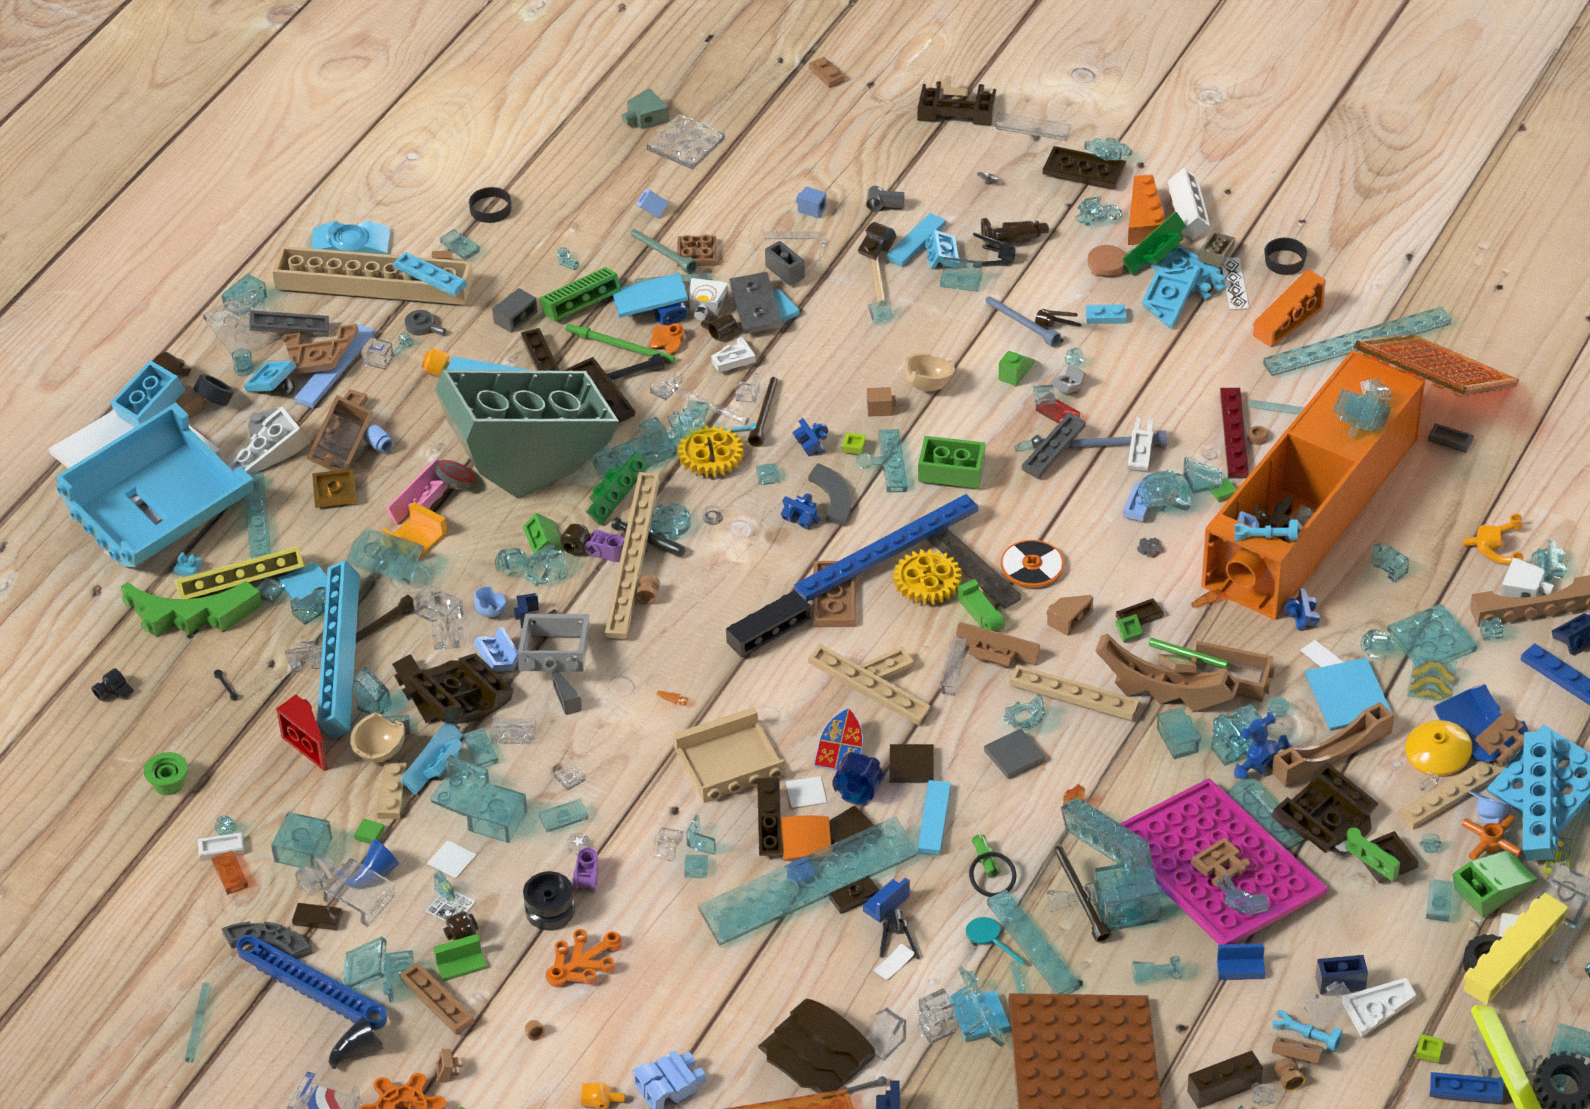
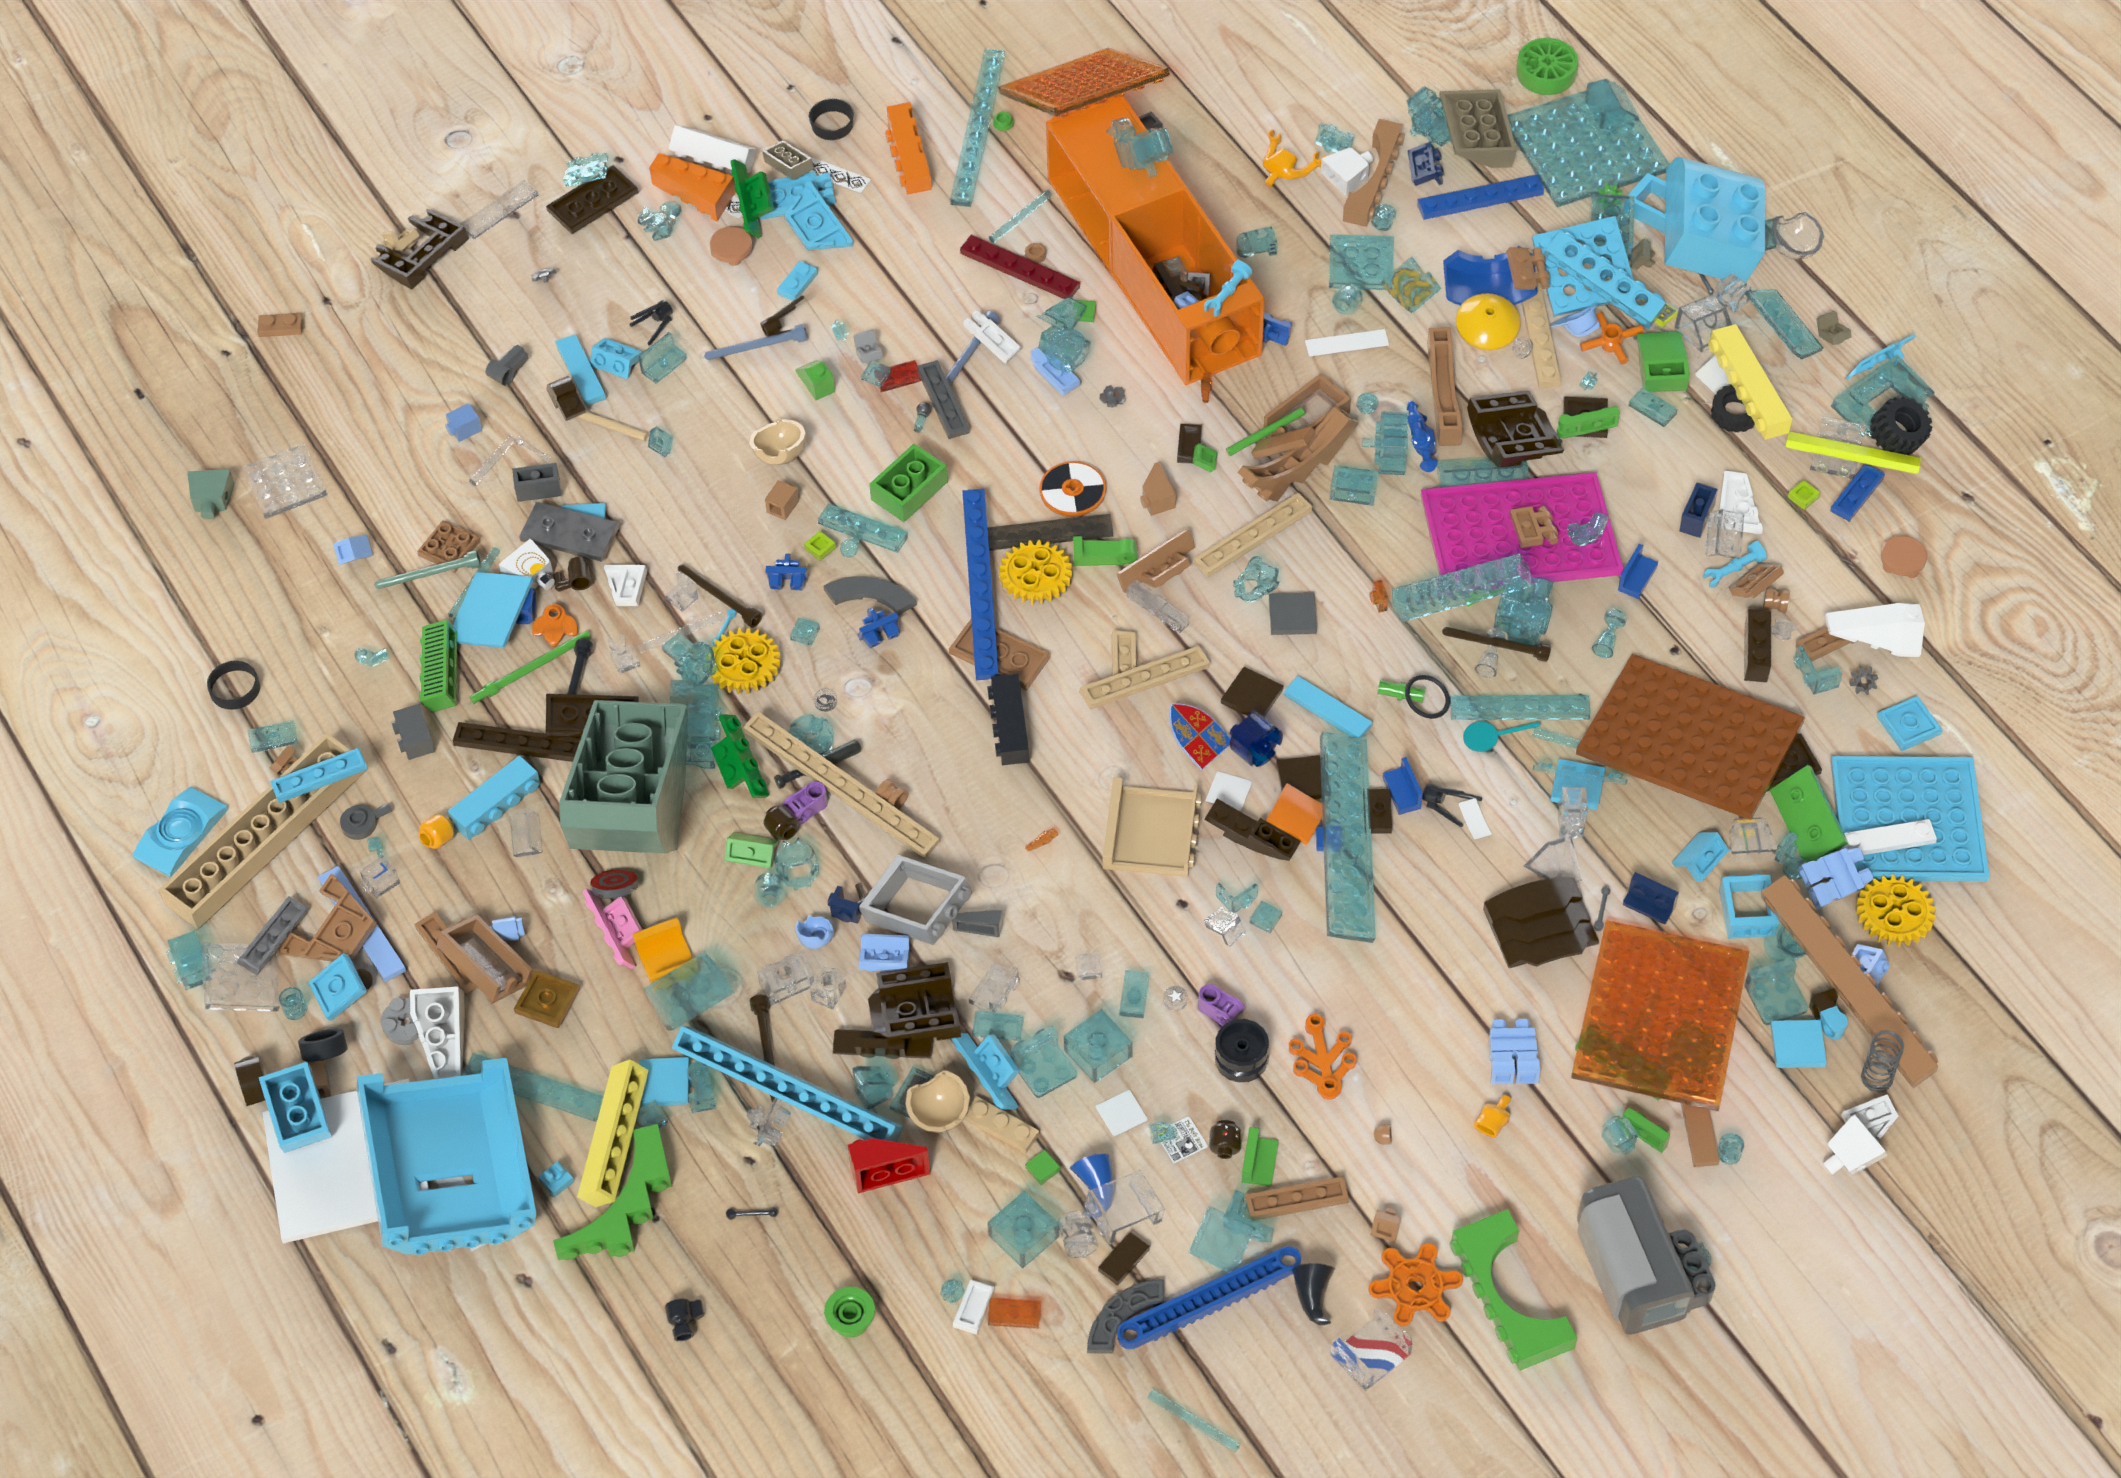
camera: 60 degrees left, 10 degrees up
(1013, 231) = (634, 293): dark brown piece -> none
(1345, 691) = (1384, 349): medium azure piece -> none

